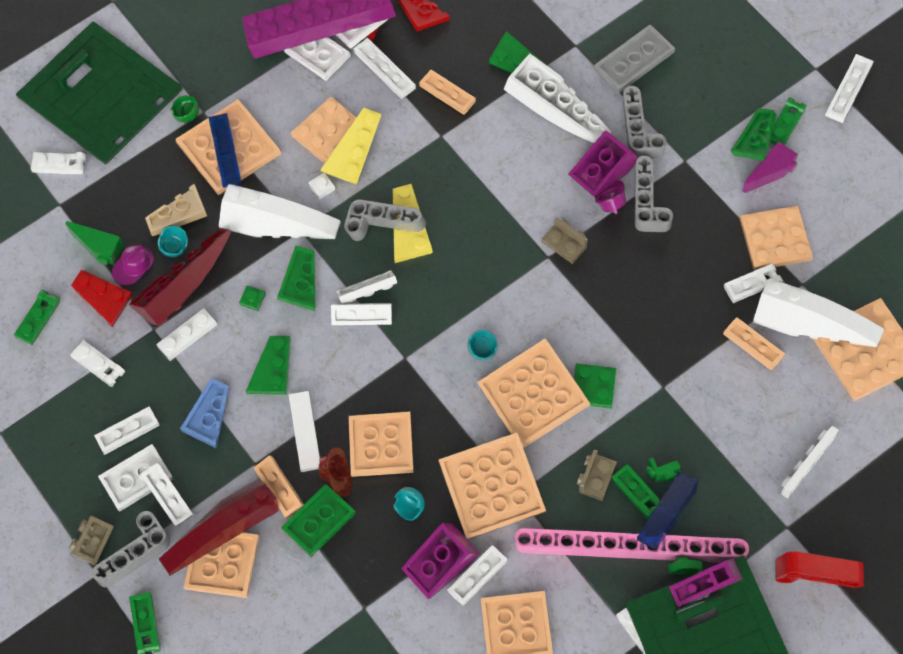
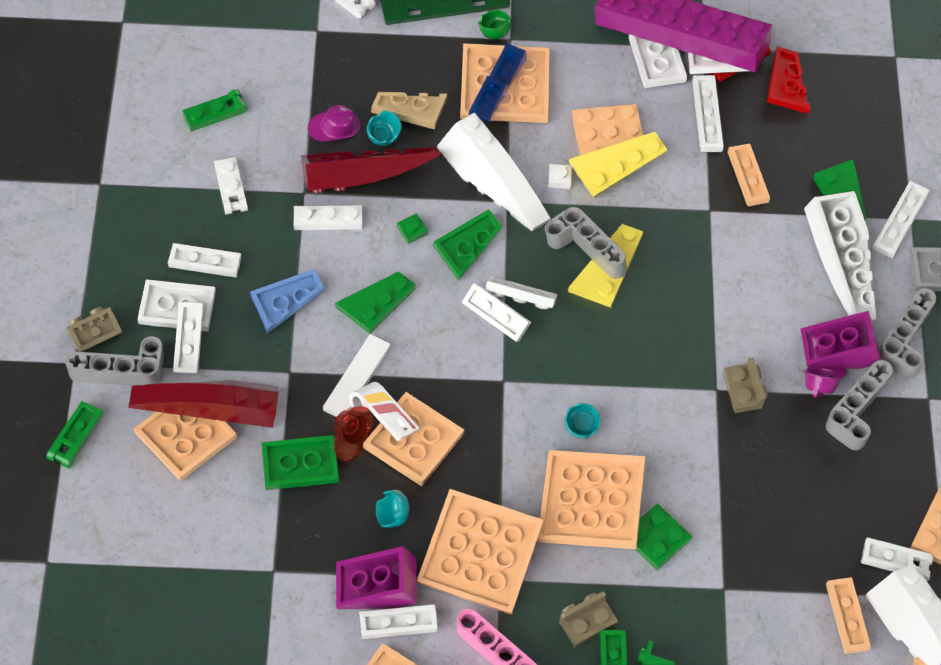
camera: 30 degrees right, 5 degrees down
(99, 244) = (321, 88): green slope -> none
(102, 295) = (284, 132): red wing -> none
(272, 475) = (290, 406): light nougat plate -> none
(346, 438) = (385, 409): none -> white door
(569, 50) = (901, 219): none -> white tile

